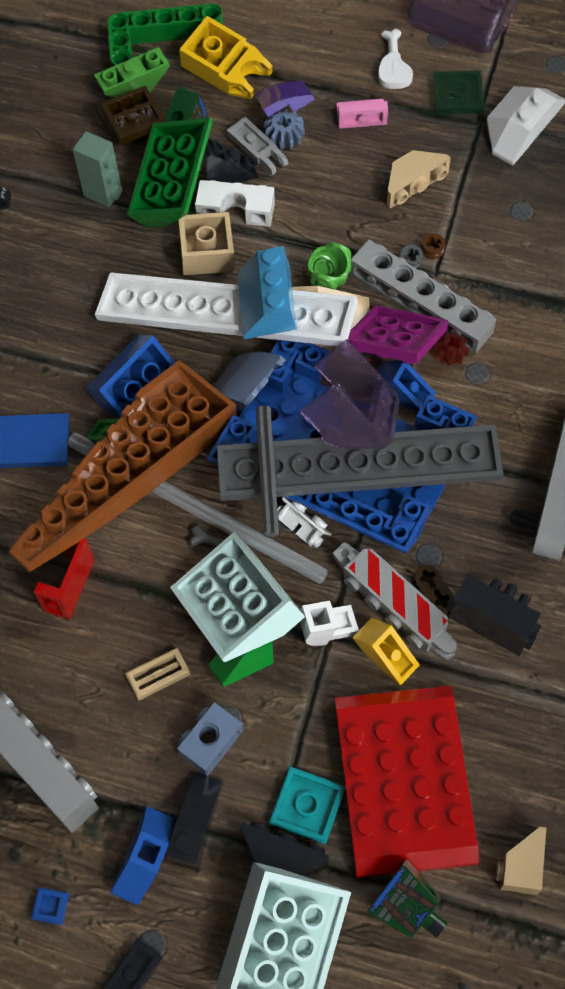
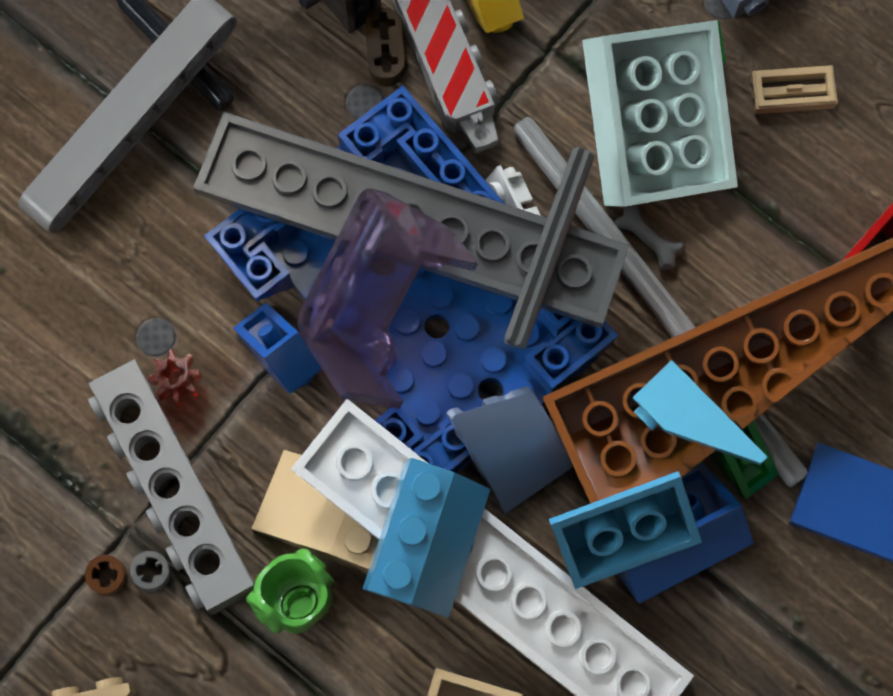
camera: 160 degrees left, 10 degrees up
(142, 411) = (687, 412): none -> medium azure slope
(160, 347) = (626, 530): none -> dark azure slope
(327, 623) = (549, 50): white brick -> none
(397, 334) = (250, 415): magenta plate -> none

